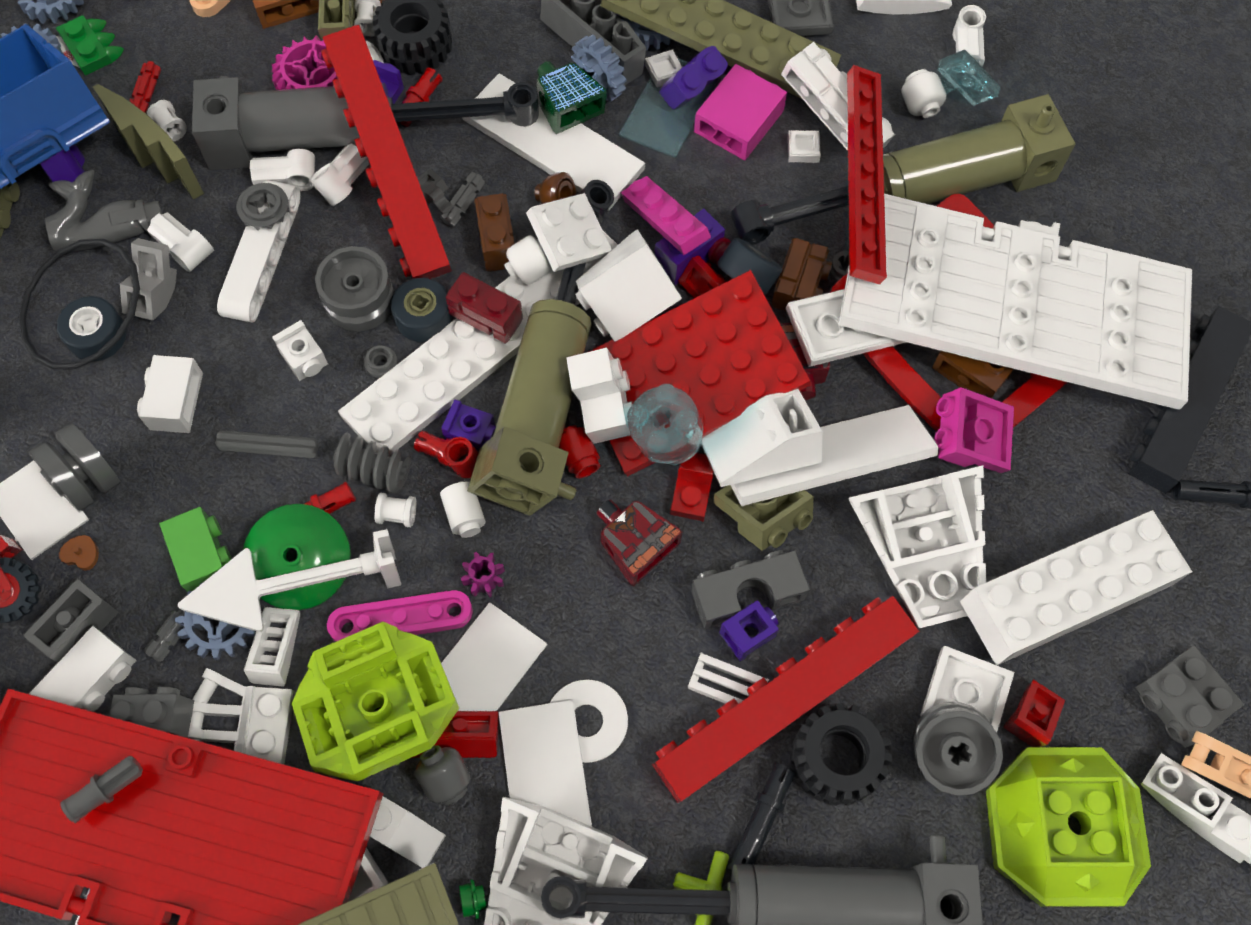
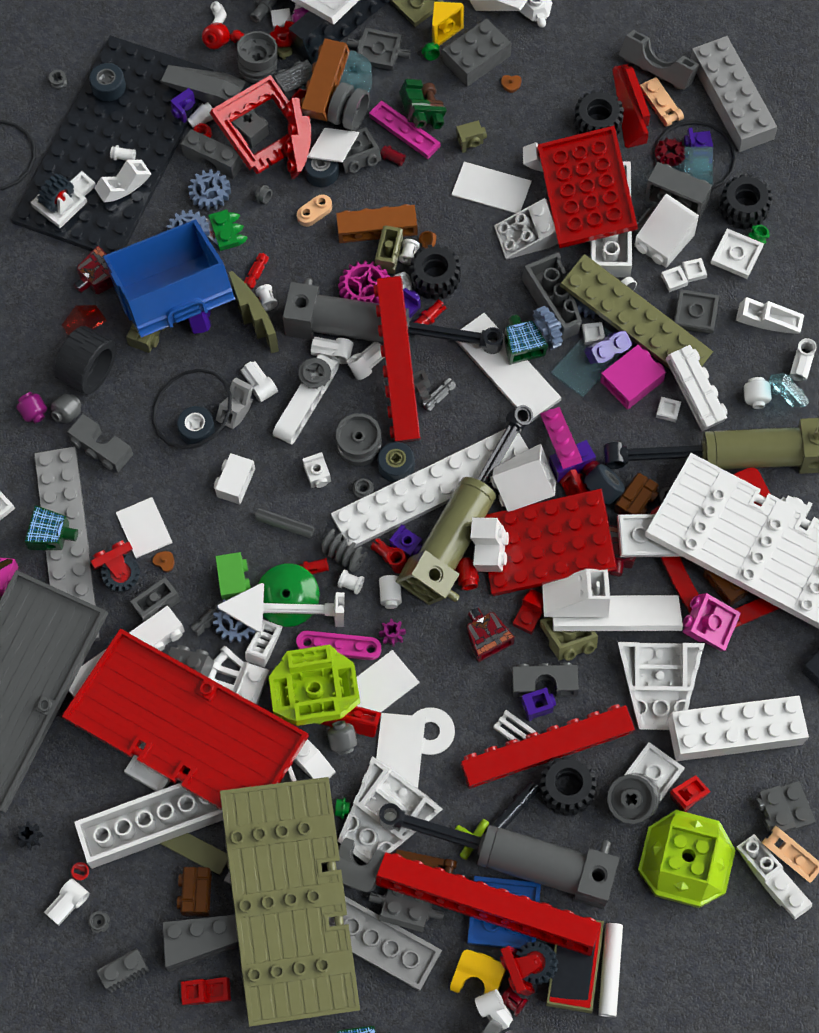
camera: 20 degrees right, 0 degrees up
(69, 471) = (173, 511): dark grey wheel -> none
(101, 789) = (163, 693): dark grey axle -> none
(111, 222) = (219, 360): dark grey piece -> none
(484, 307) = (433, 471): dark red brick -> none
(494, 229) = (453, 422): reddish brown brick -> none
(527, 260) = (469, 447): white head -> none
(555, 187) = (498, 405): reddish brown brick -> none
(568, 231) = (497, 436): white plate -> none
(661, 407) = (517, 561): clear light blue brick -> none
(866, 176) = (692, 443): red plate -> none

